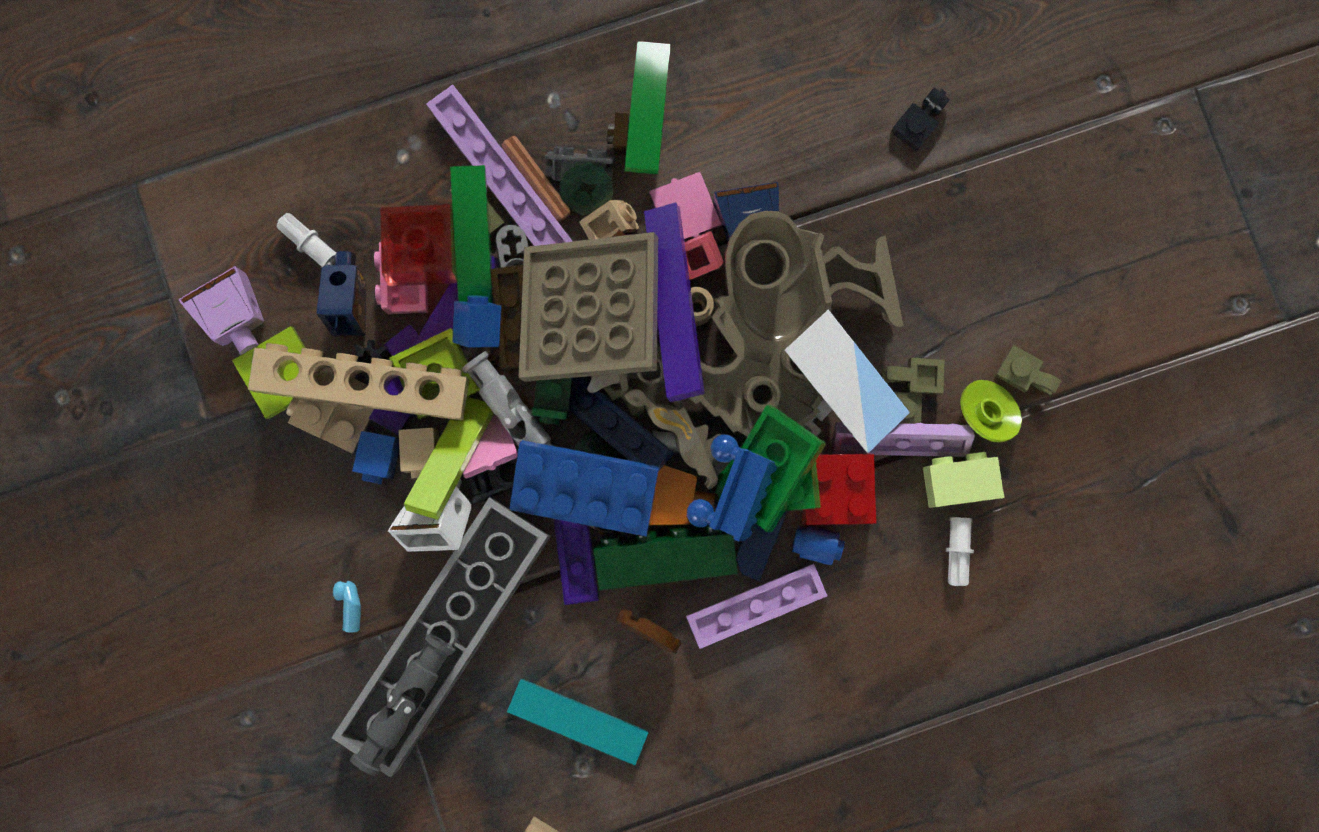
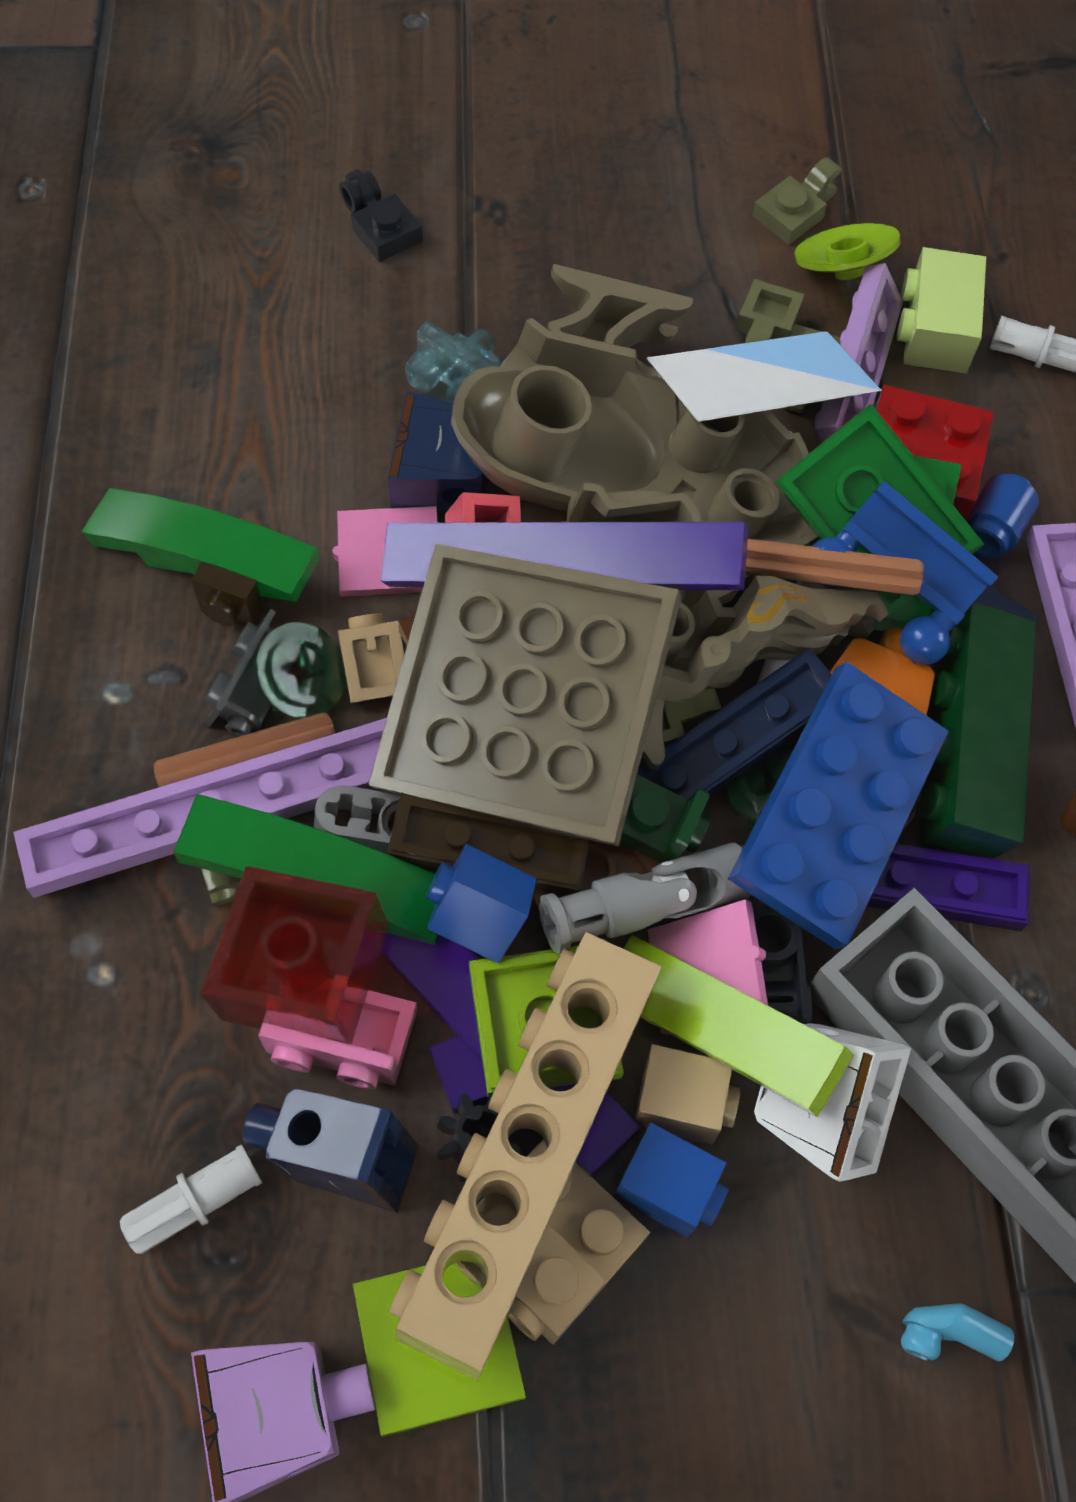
camera: 75 degrees left, 20 degrees down
(715, 460) = (834, 567): none -> nougat axle
(816, 190) = (448, 358): none -> clear light blue hips

